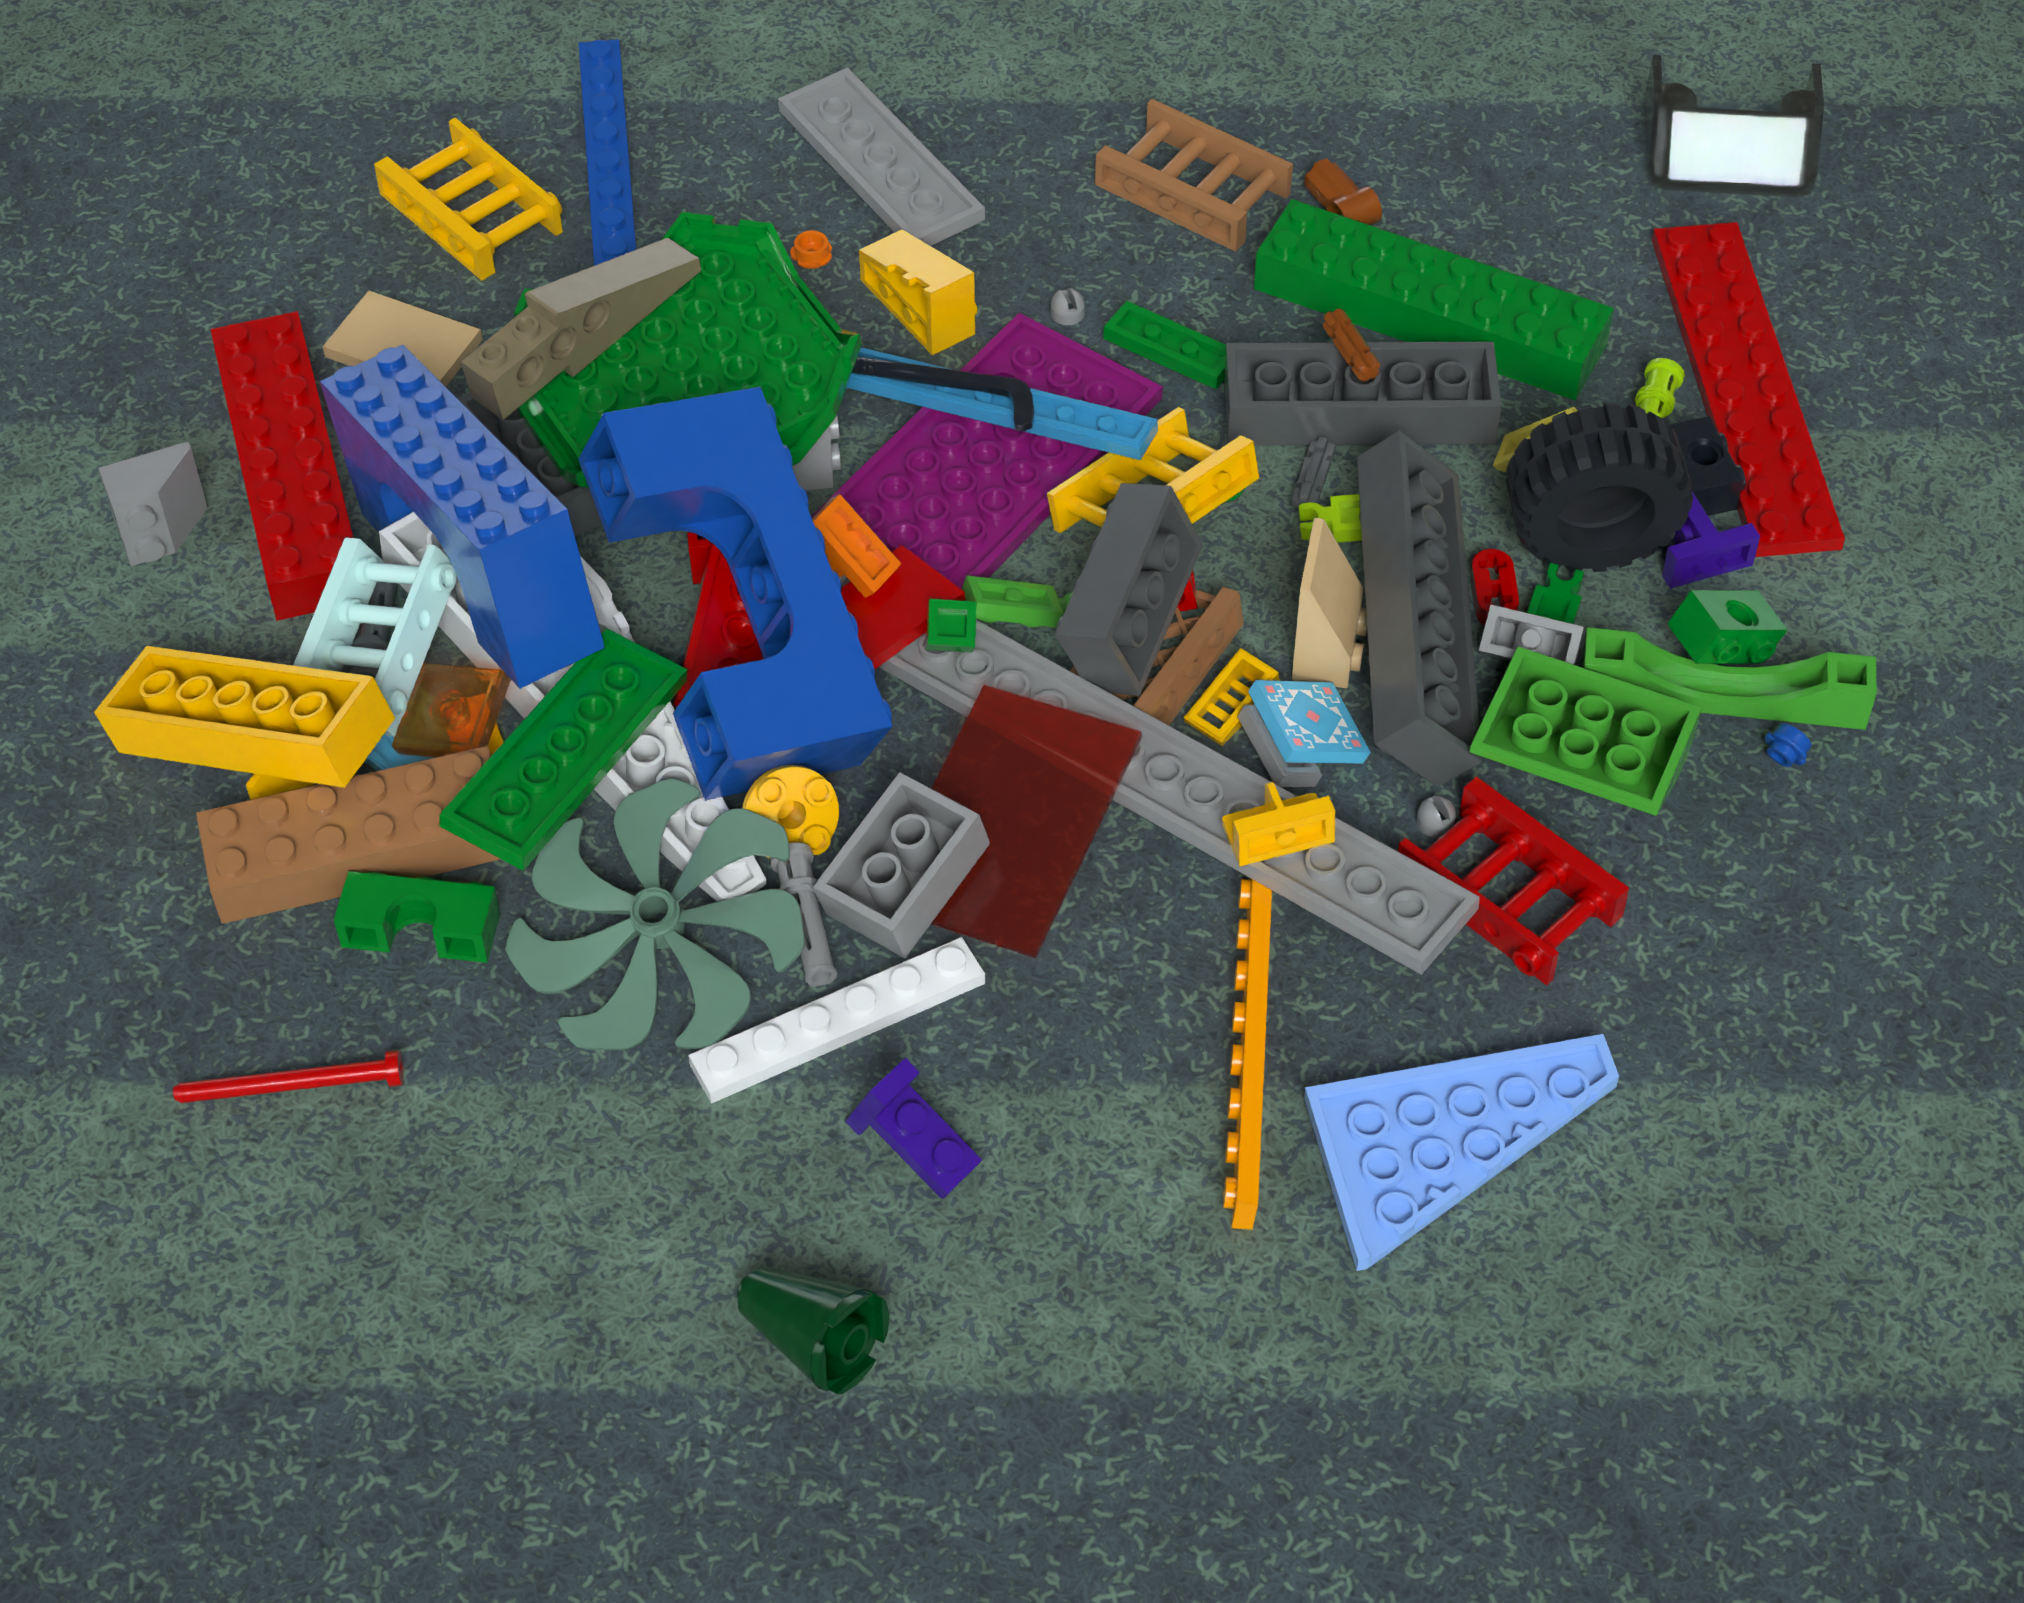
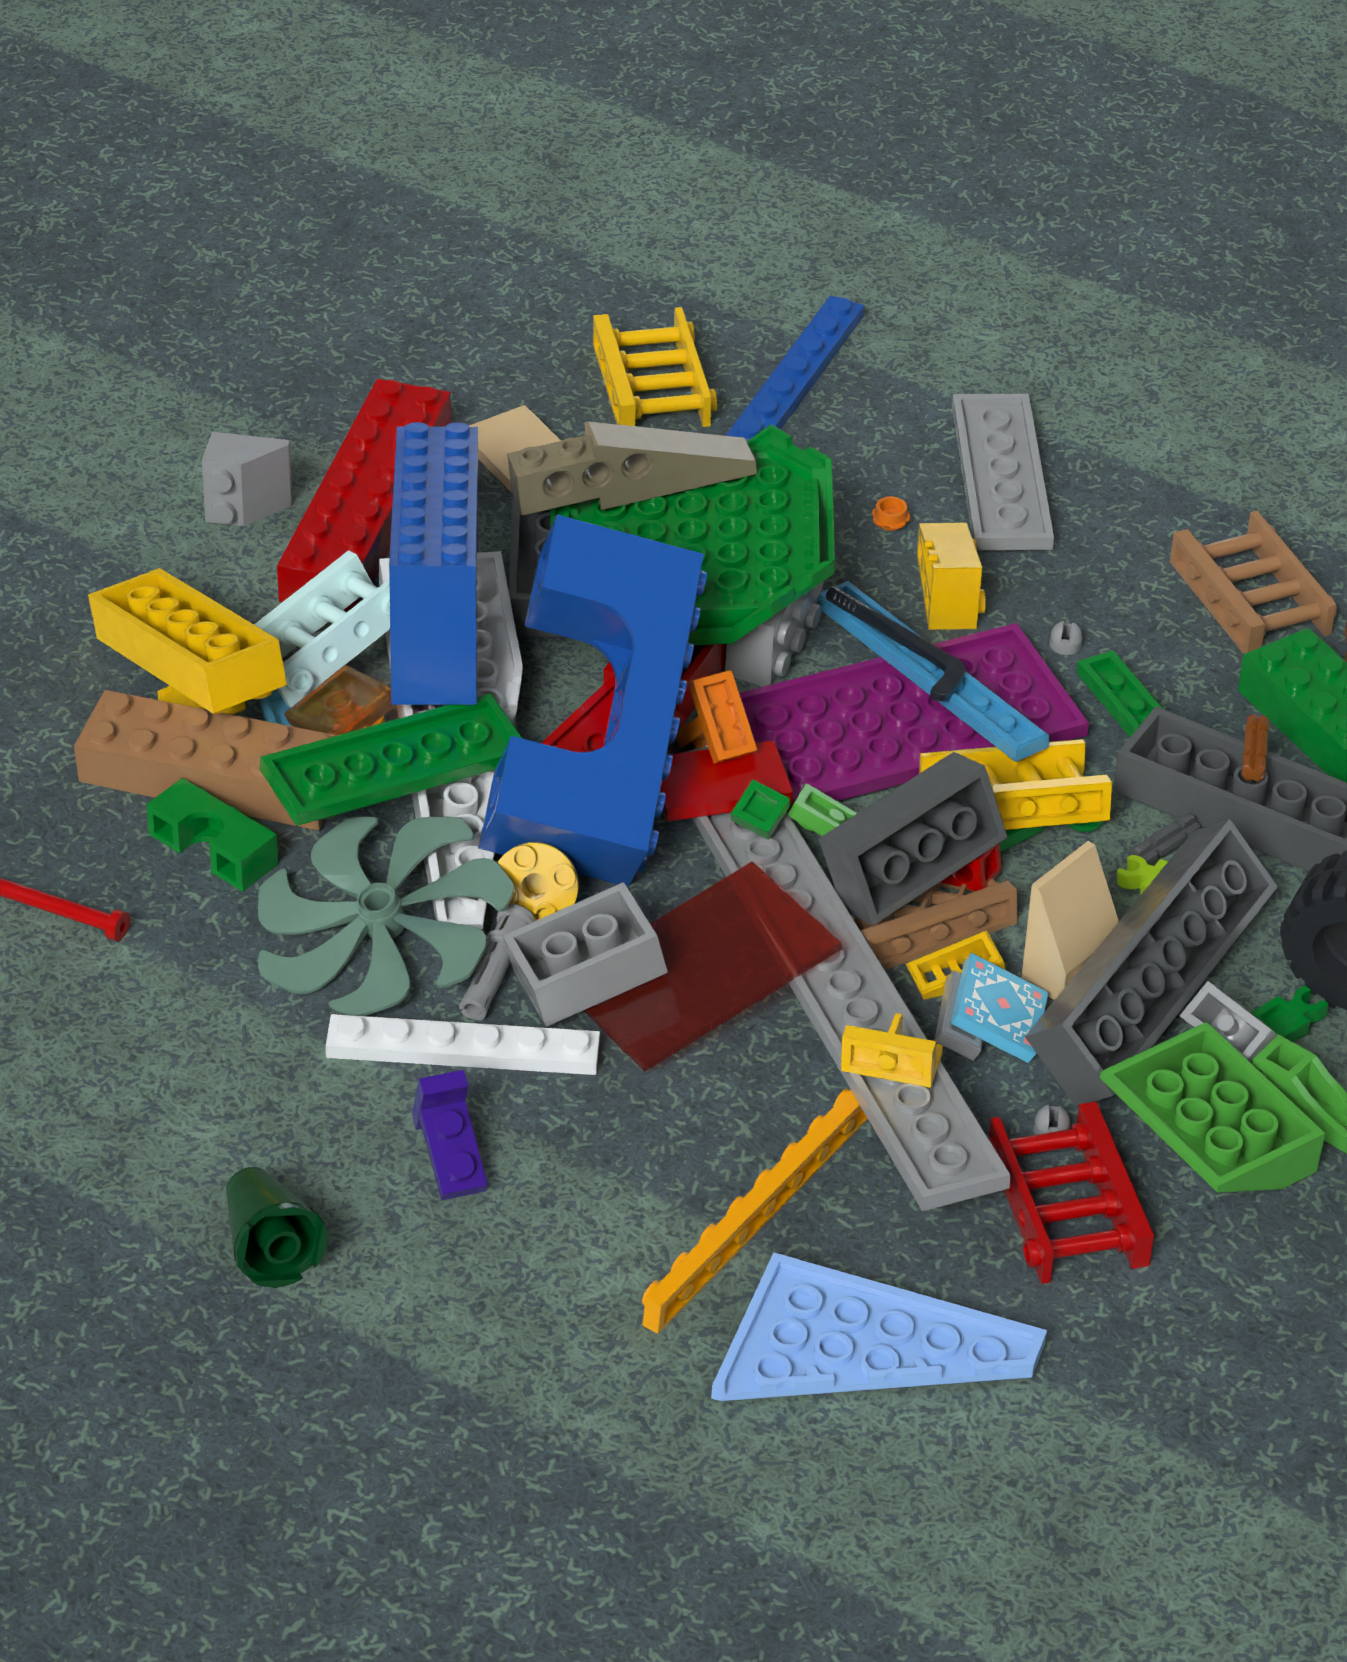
camera: 30 degrees right, 10 degrees down
(1485, 589) = (1255, 989): red beam -> none

